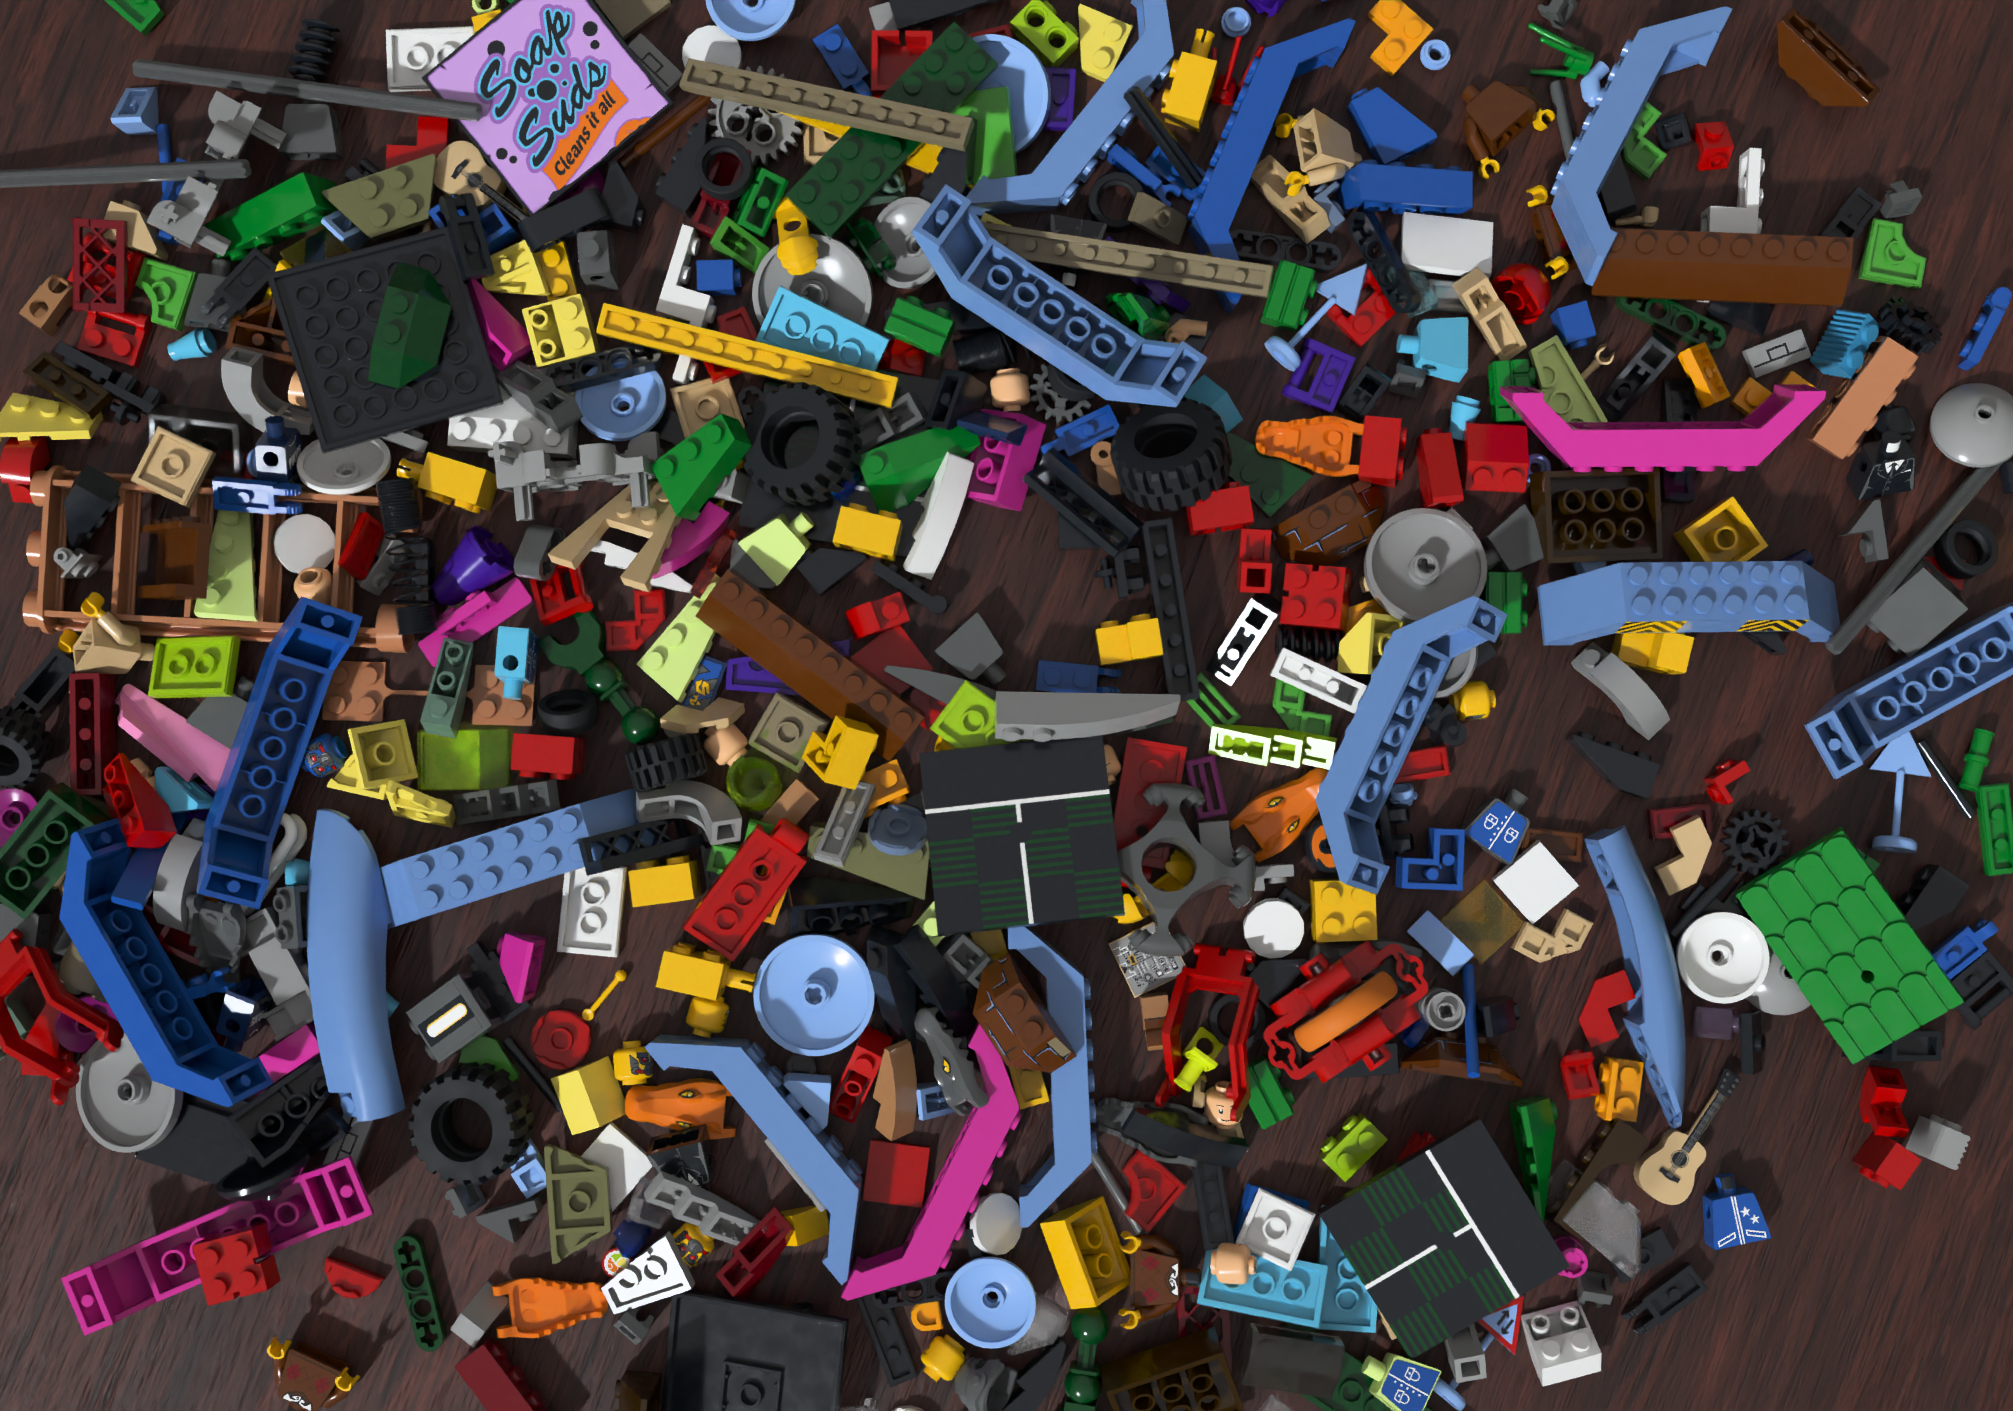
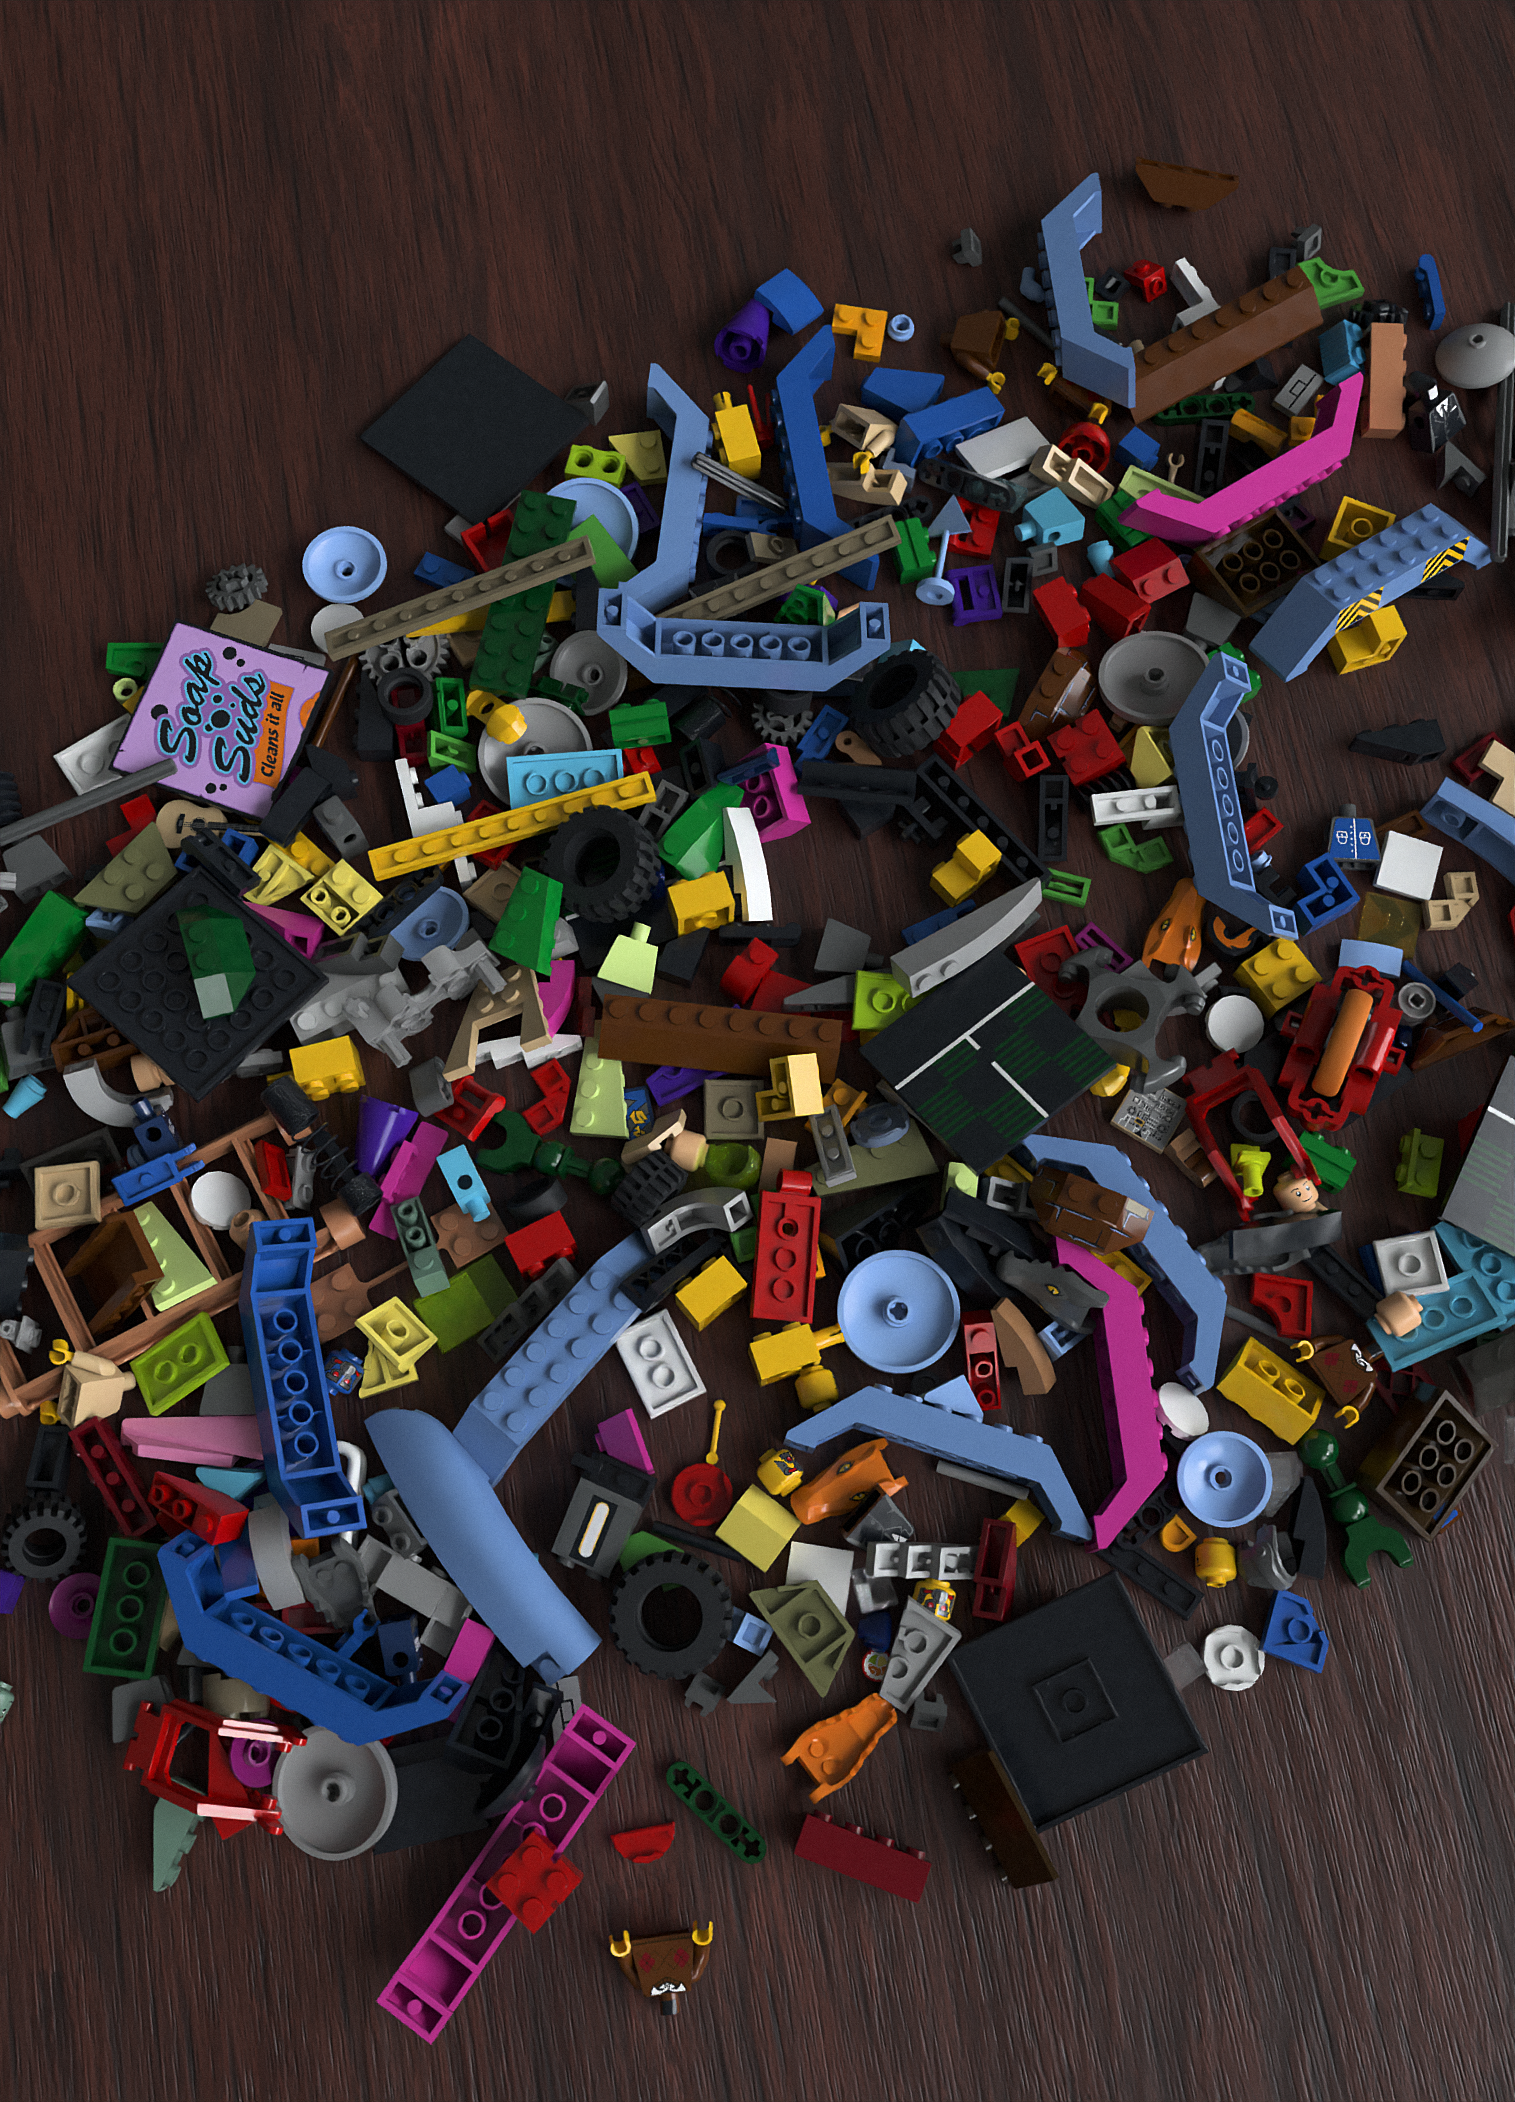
camera: 40 degrees left, 15 degrees down
(345, 469) = (219, 1112): white dish -> none
(419, 806) = (453, 1362): light yellow wing -> none
(479, 1315) = (784, 1797): light grey slope -> none
(896, 1173) = (1067, 1425): red tile -> none
(1010, 390) = (739, 738): light nougat head -> none
(1197, 1094) = (1269, 1199): tan tile -> none
(1236, 22) = (736, 385): light blue plate -> none
(1272, 745) = (1132, 885): lime slope -> none
(1315, 443) = (1006, 641): orange animal -> none
(1473, 701) = (1263, 753): yellow head -> none
(1576, 57) = (1006, 276): green plant -> none
(1625, 688) = (1369, 677): light grey arch -> none
(1726, 773) = (1487, 711): red bracket -> none

